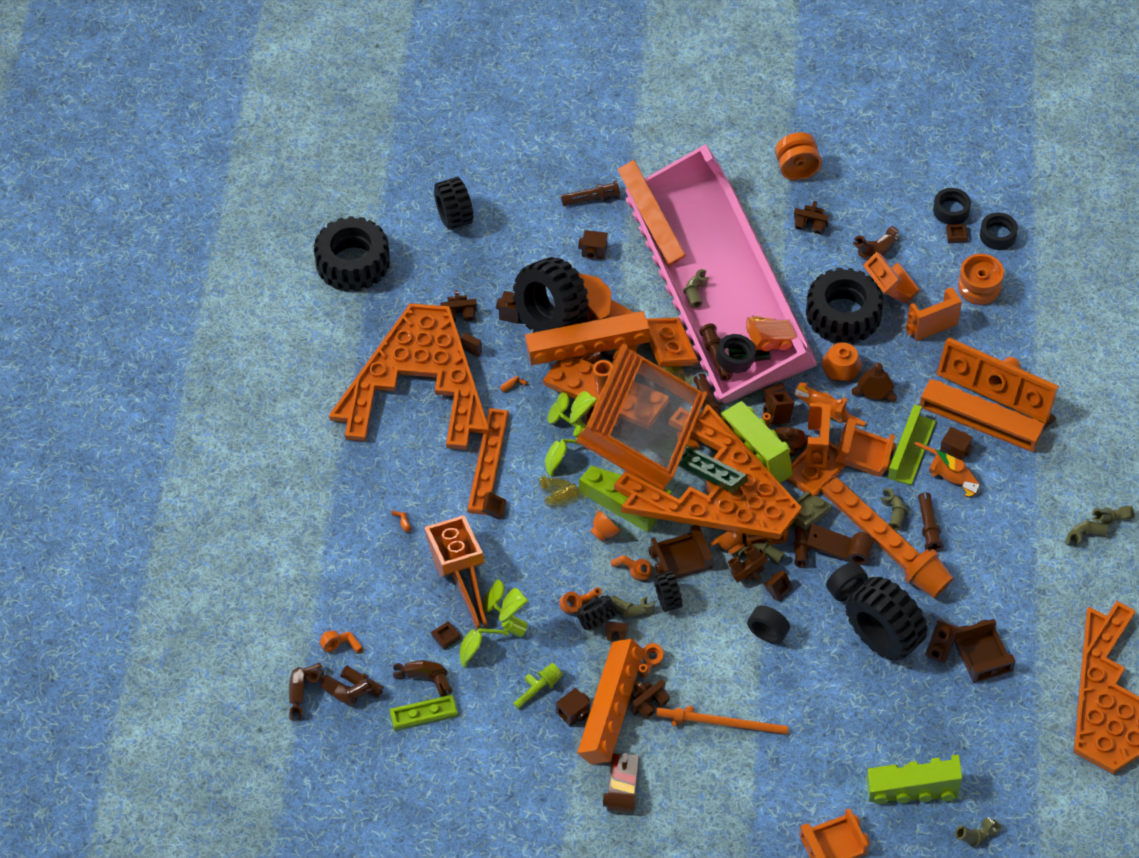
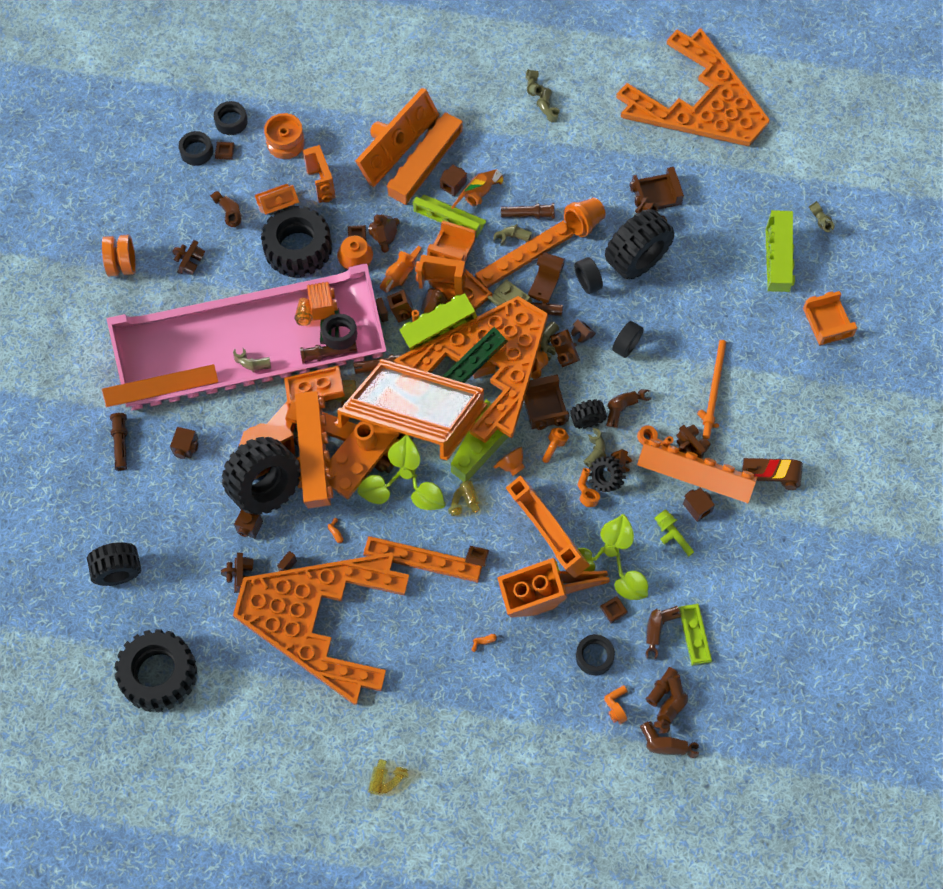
camera: 85 degrees left, 10 degrees up
(258, 444) = (377, 782): none -> clear yellow plant
(396, 604) = (595, 639): none -> black tyre
(560, 540) = (548, 526): none -> orange arch
(688, 624) = (620, 403): none -> reddish brown arm
(868, 362) = (357, 231): none -> reddish brown tile

